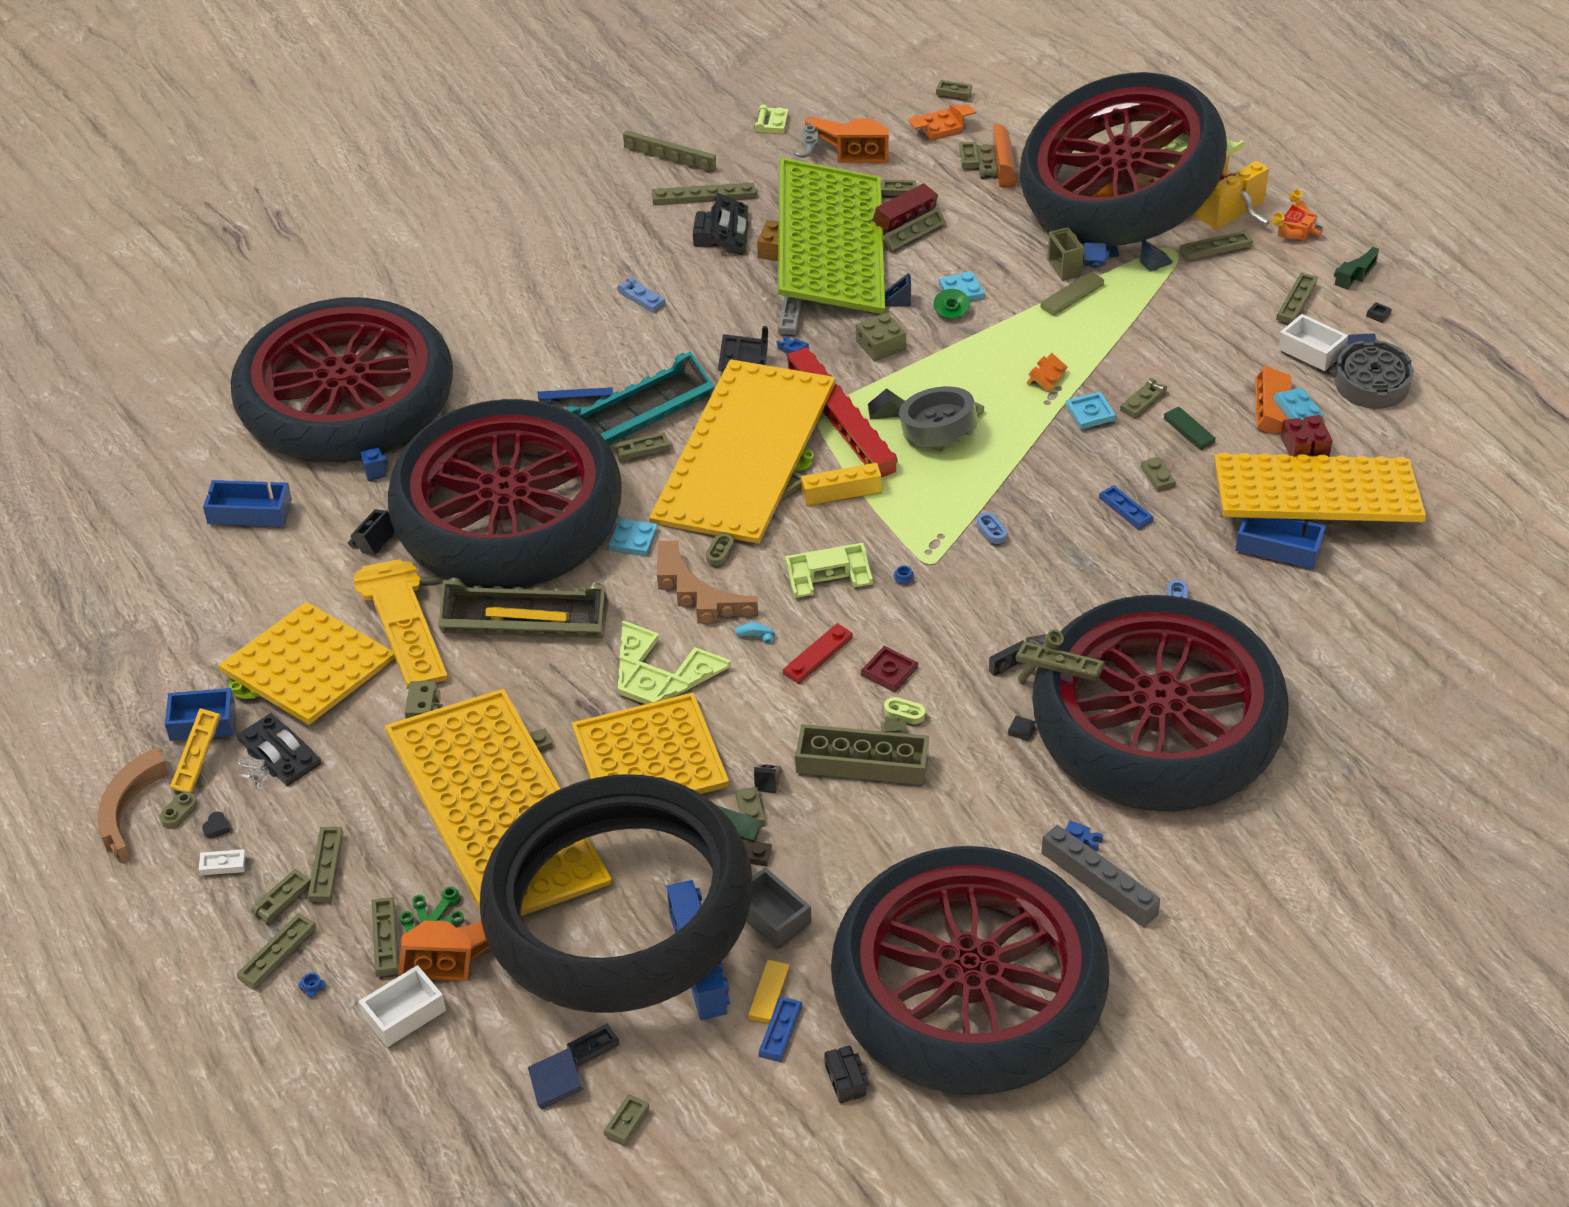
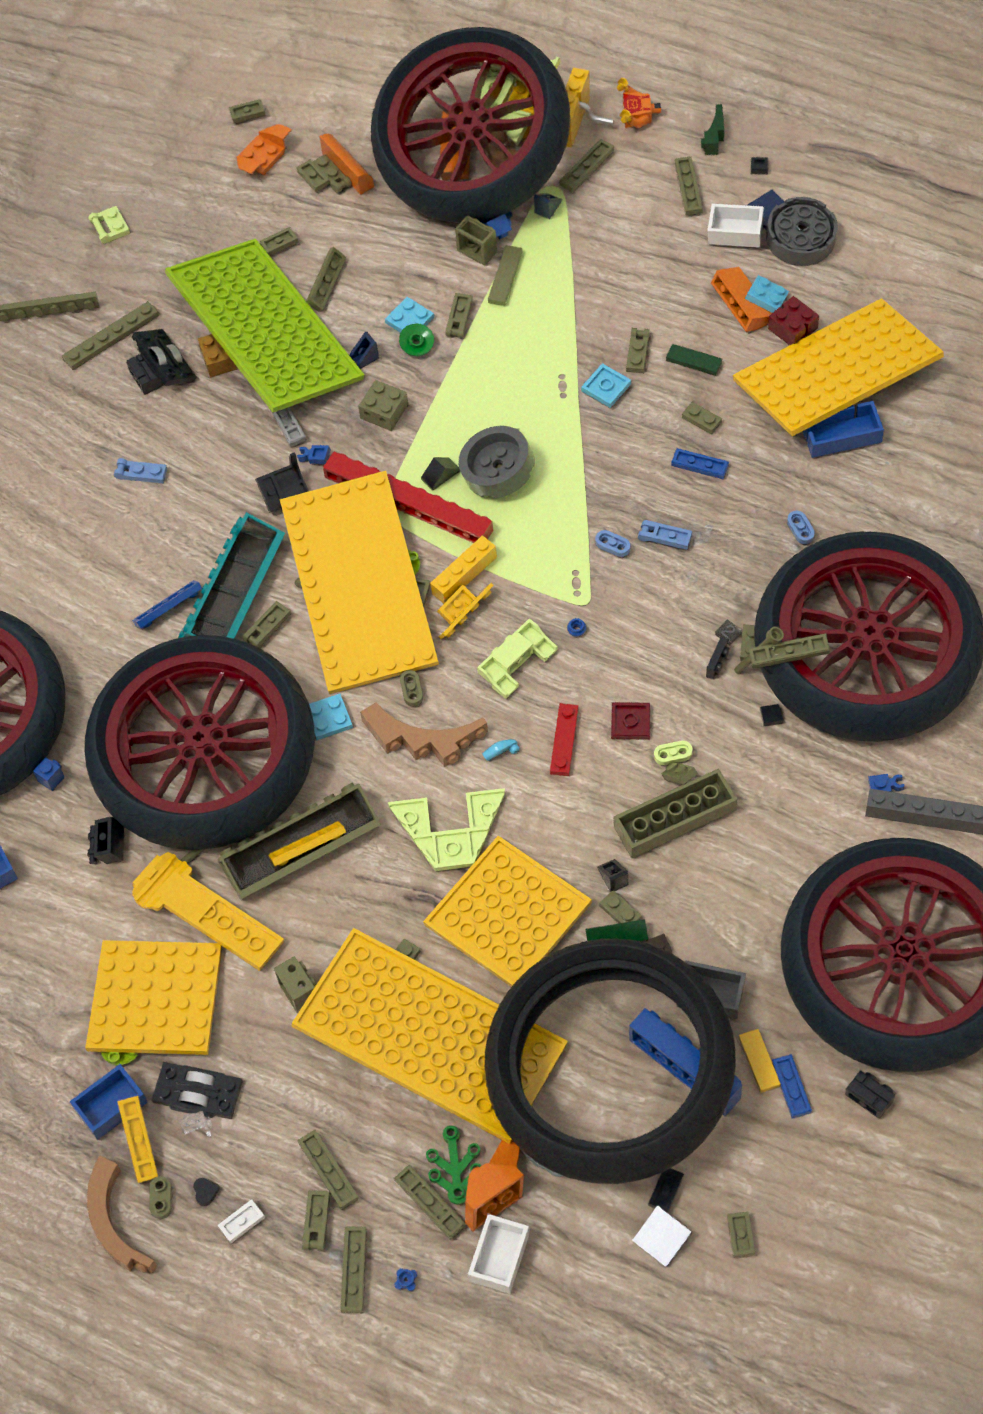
camera: 30 degrees left, 15 degrees up
(814, 509) = (458, 605): none -> yellow bracket
(856, 141) = (208, 214): orange slope -> none
(905, 207) = (305, 261): dark red brick -> none
(1005, 303) = (459, 315): none -> olive plate
(1045, 544) = (665, 534): none -> medium blue plate
(1048, 371) = (544, 366): orange bracket -> none

